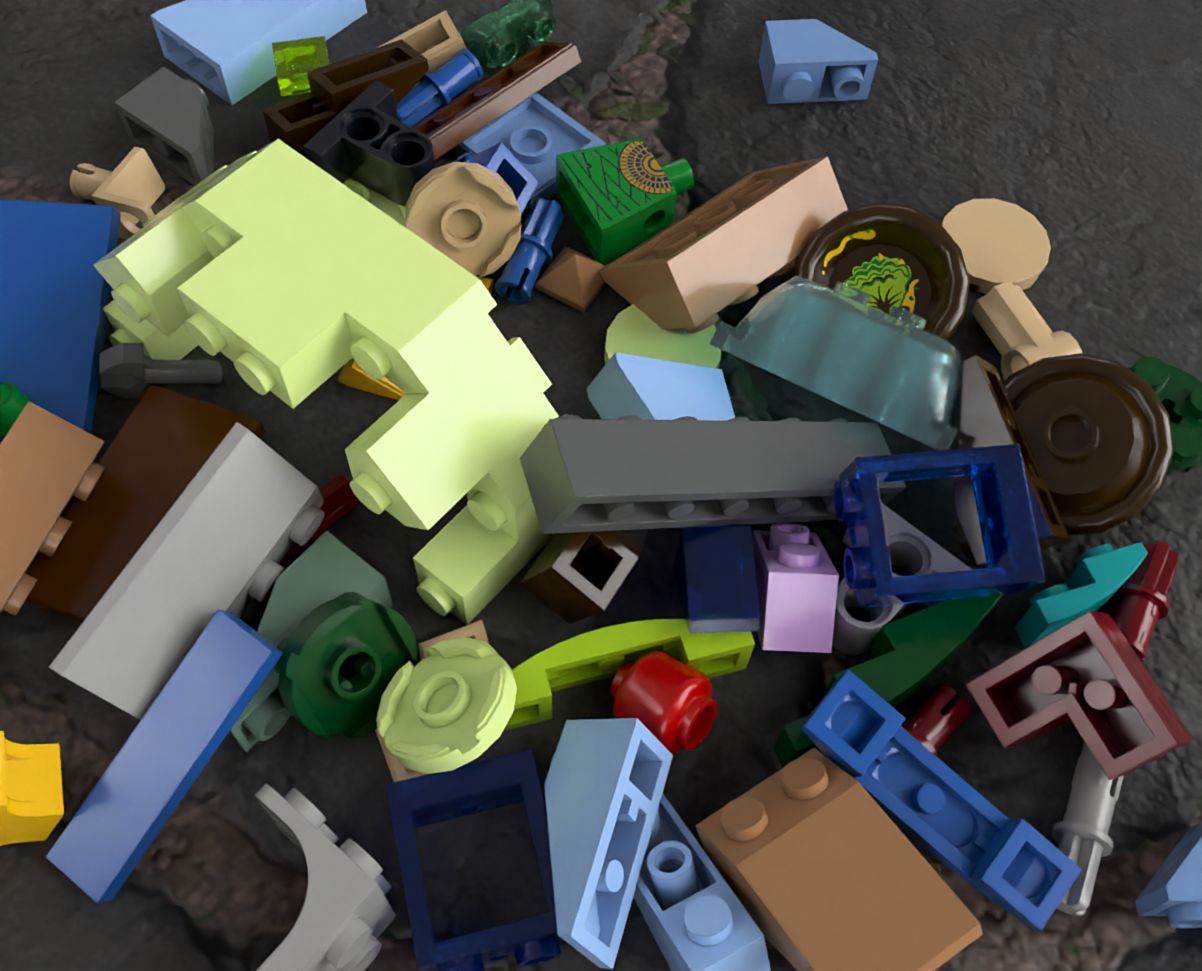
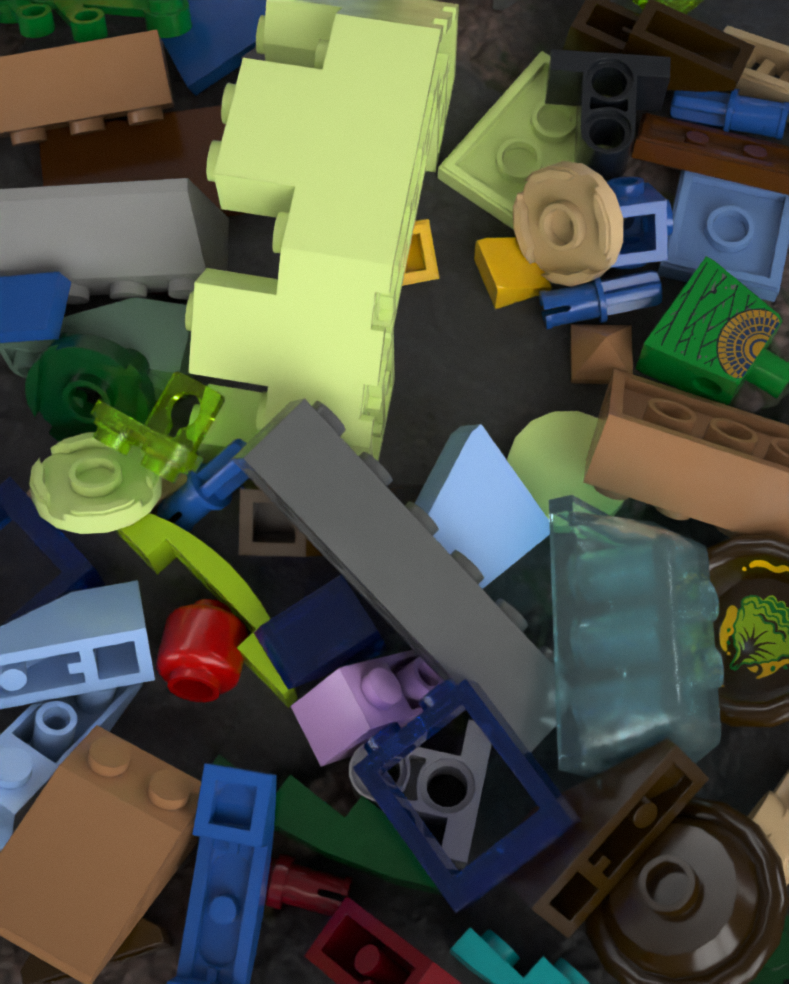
camera: 65 degrees right, 10 degrees up
(467, 611) = (163, 453): none -> clear neon green bracket
(514, 601) = (206, 489): none -> blue axle

